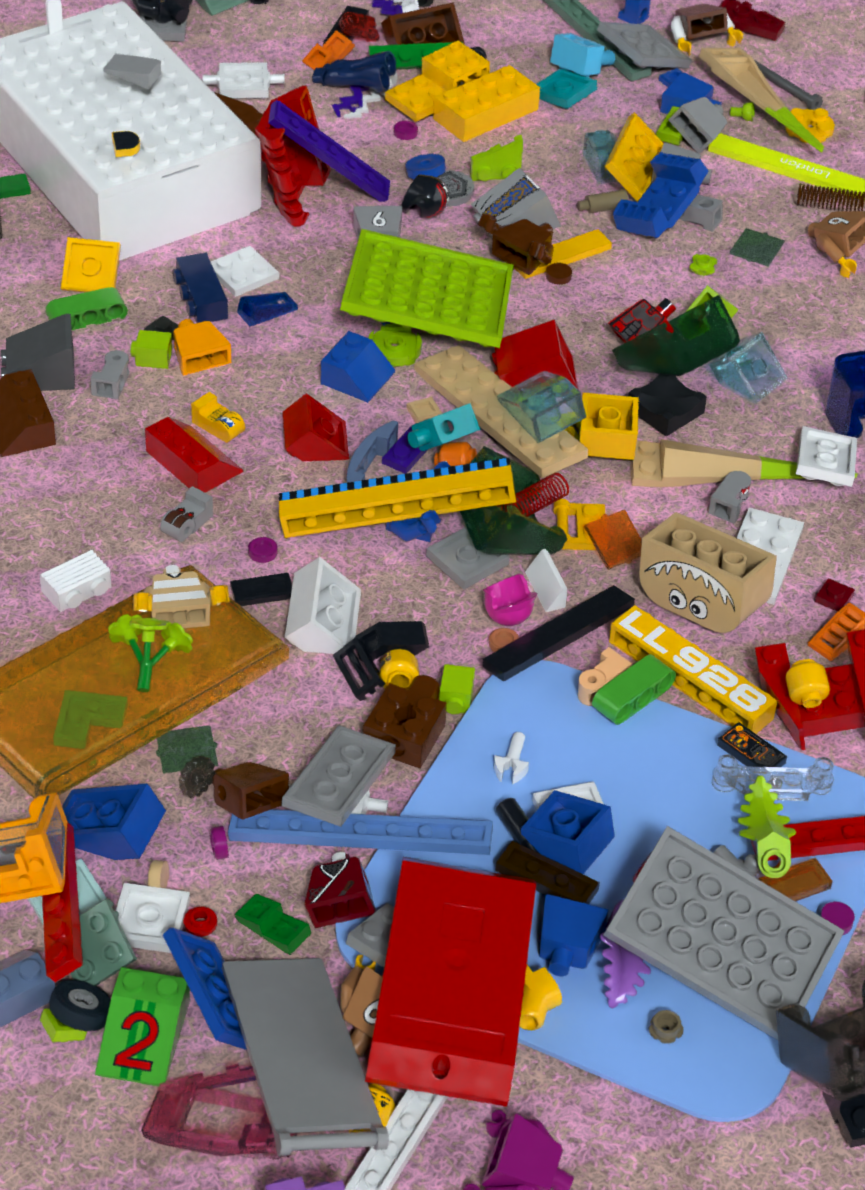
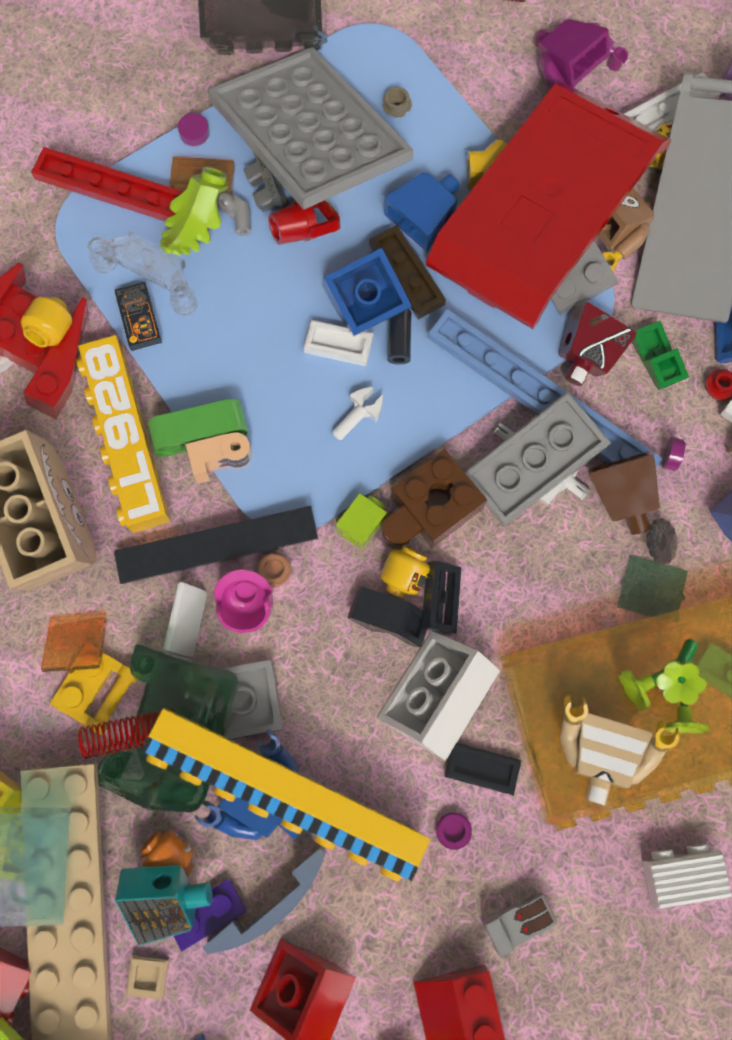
camera: 150 degrees left, 30 degrees up
(622, 970) = (387, 182): medium lavender plant -> none

